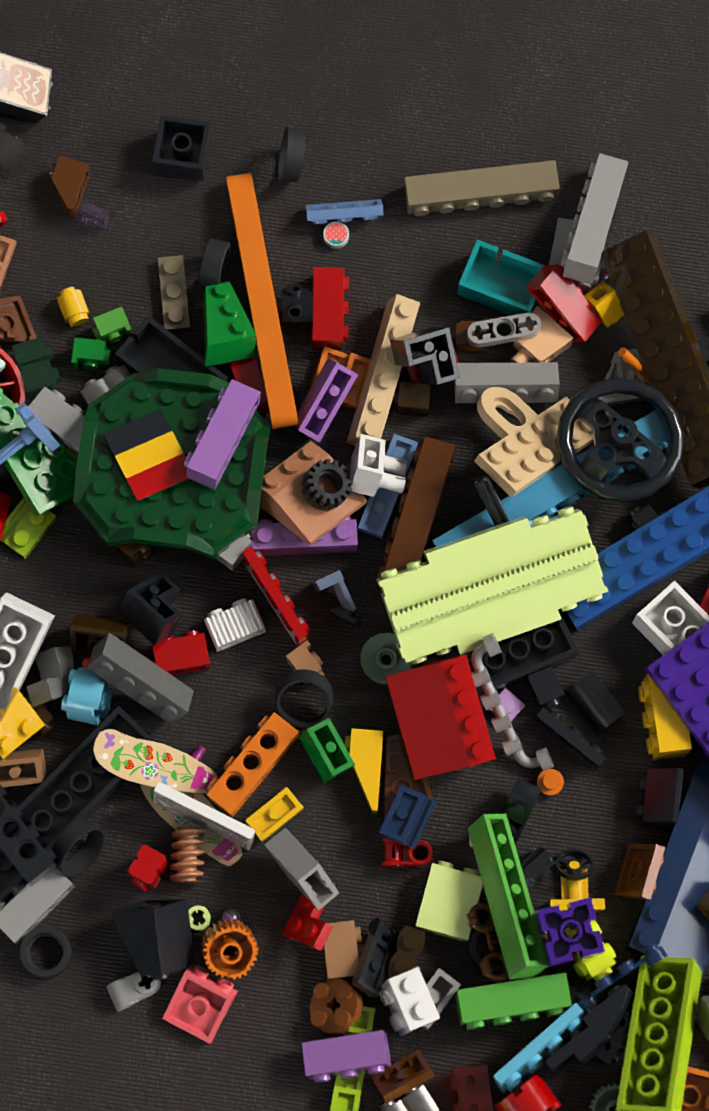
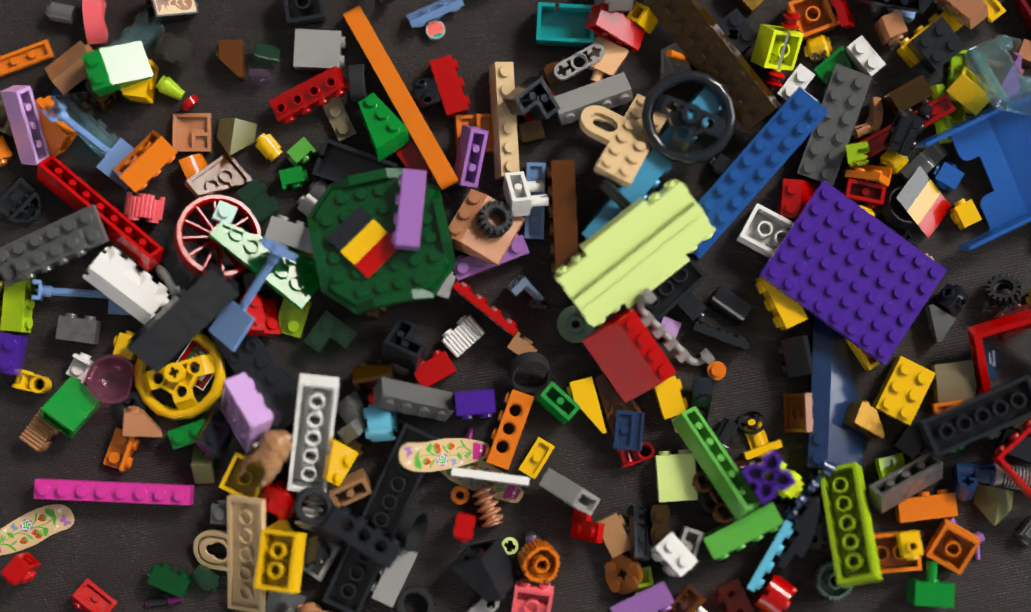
camera: 20 degrees left, 10 degrees up
(39, 277) = (235, 134): none -> olive slope
(64, 556) = (327, 329): none -> clear green brick
(113, 193) = (266, 53): none -> clear green brick
(147, 259) = (309, 95): none -> red brick
(157, 820) = (454, 495): none -> orange plate
(180, 210) = (318, 49): none -> light grey brick
(219, 713) = (475, 402): none -> dark purple brick
(476, 793) = (670, 398): none -> yellow brick

